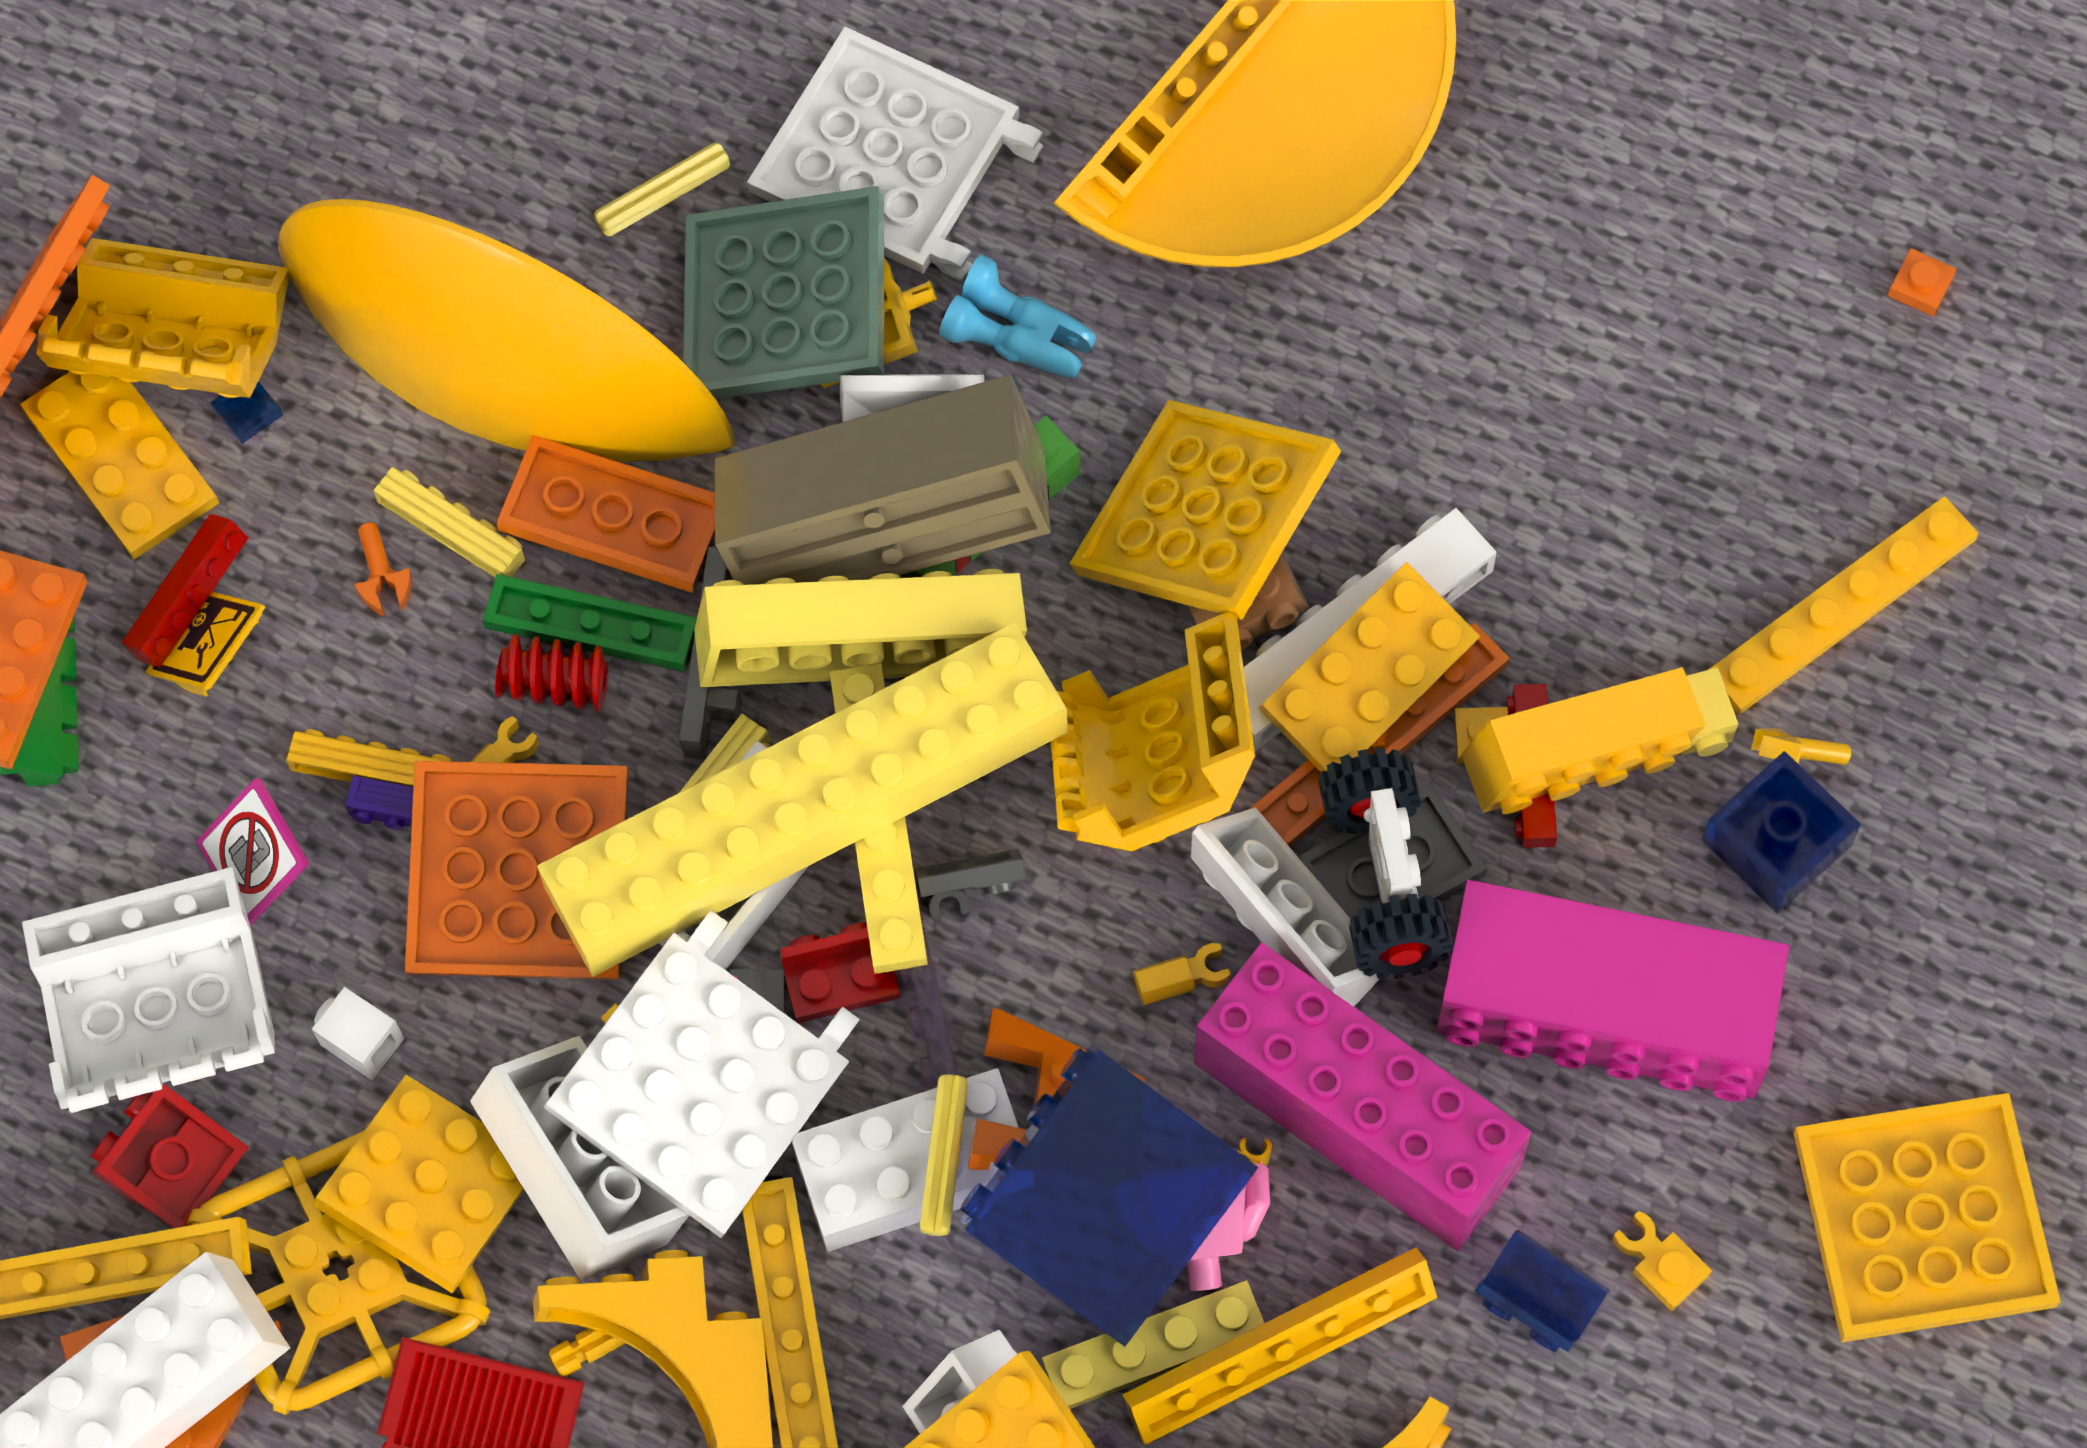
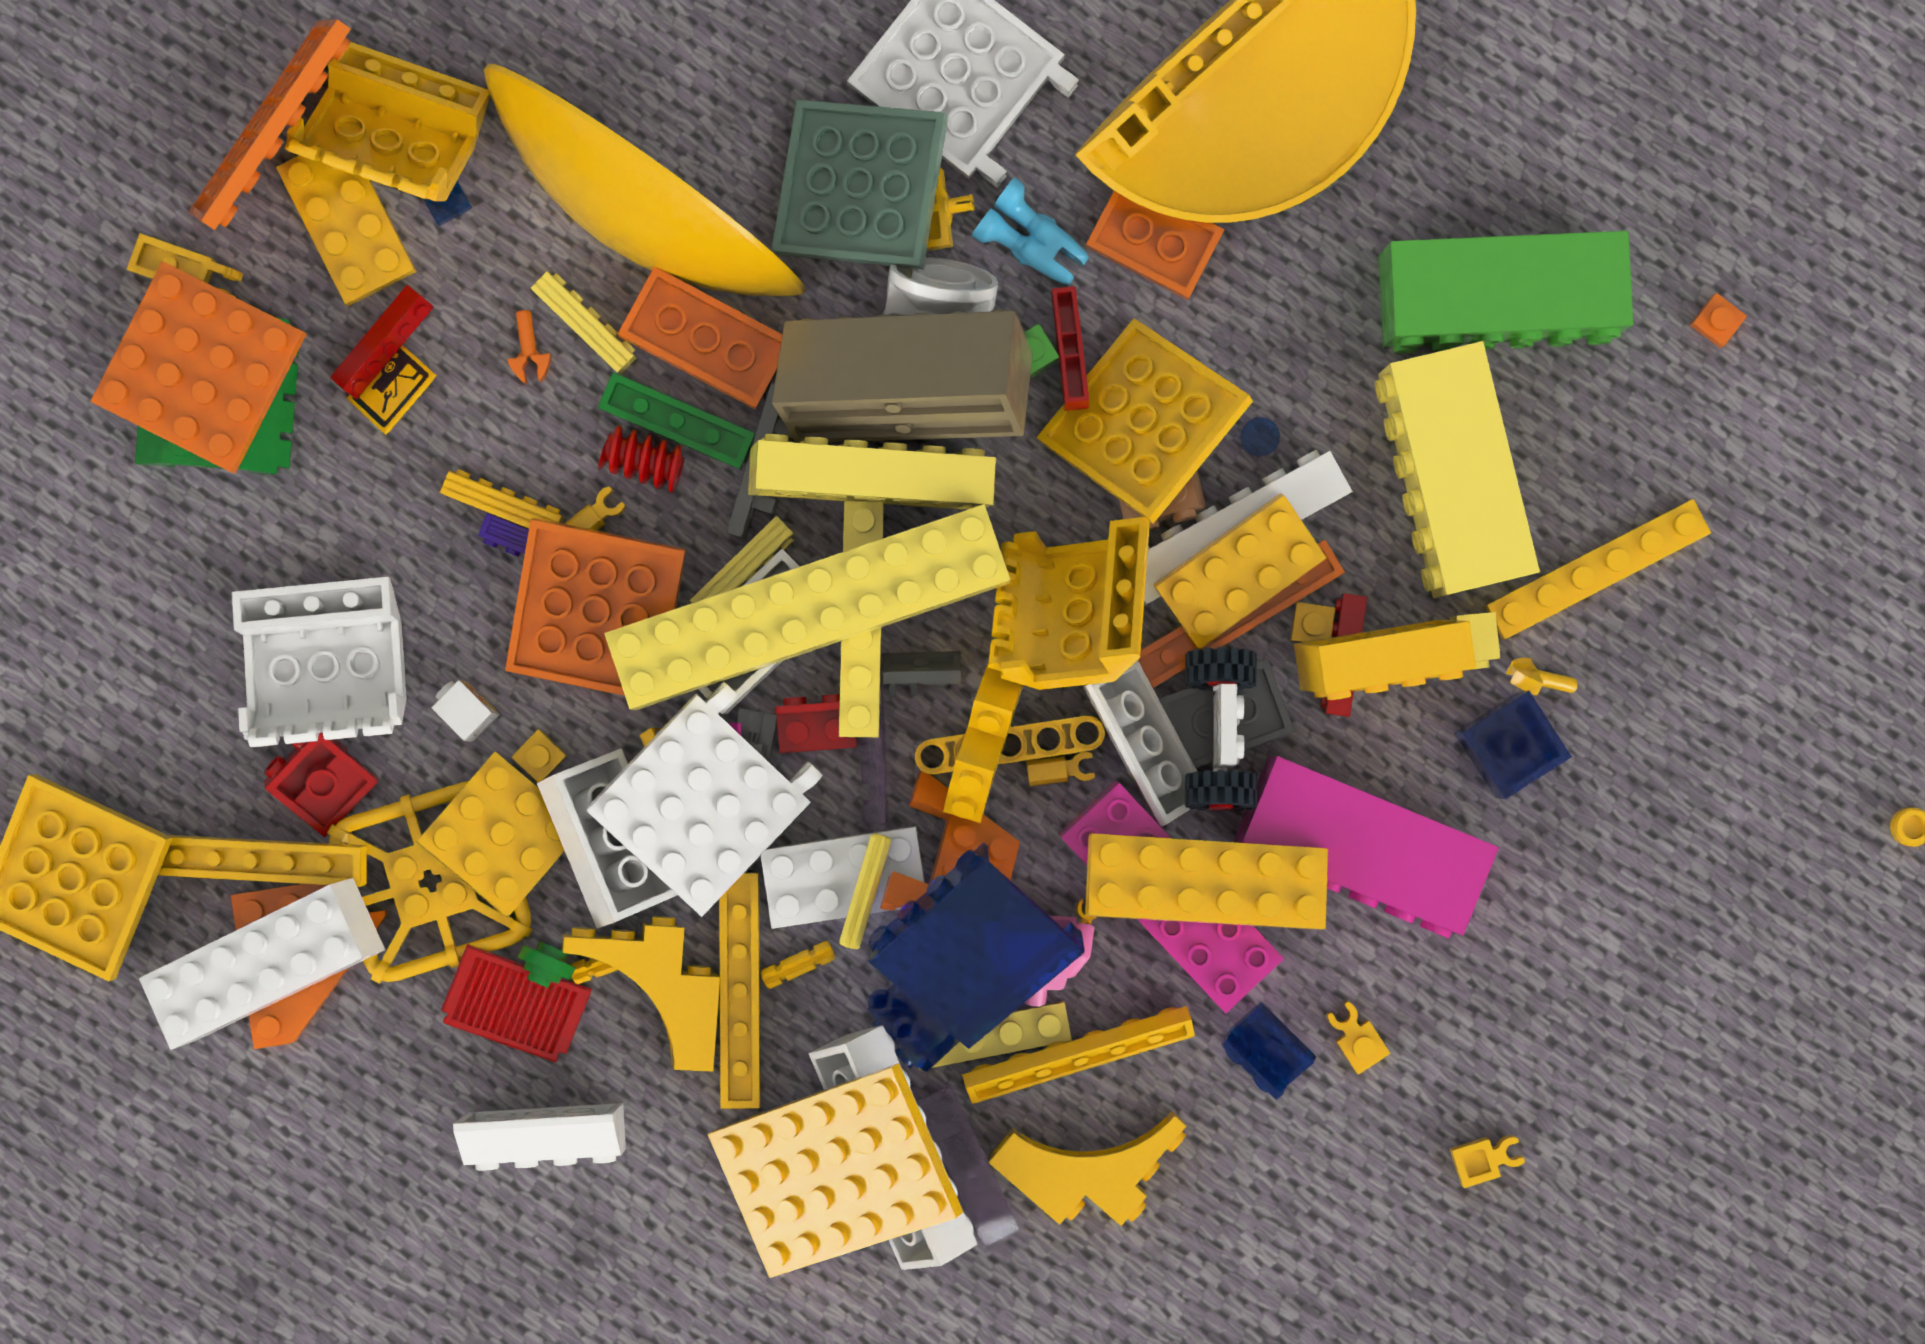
camera: 10 degrees right, 20 degrees up
(257, 846) = (407, 560): piece -> none
(461, 1077) = (539, 756): none -> yellow plate
(516, 1342) = (545, 964): none -> green plate
(661, 189) = (782, 72): light yellow axle -> none
(867, 1296) = (798, 964): none -> yellow axle
(1030, 1320) = (916, 1033): none -> clear blue brick
(1070, 941) = (982, 746): none -> yellow arch
(1092, 439) = (1070, 348): none -> red piece
(1121, 931) = (1029, 747): none -> yellow beam
(1177, 306) = (1154, 244): none -> orange plate
(1362, 518) = (1260, 437): none -> clear blue tile
(1404, 1042) = (1206, 881): none -> yellow plate
(1627, 506) = (1456, 470): none -> light yellow brick
(1637, 281) = (1505, 290): none -> bright green brick
(1870, 1396) = (1479, 1161): none -> yellow plate
(1926, 1217) = (1549, 1042): yellow plate -> none

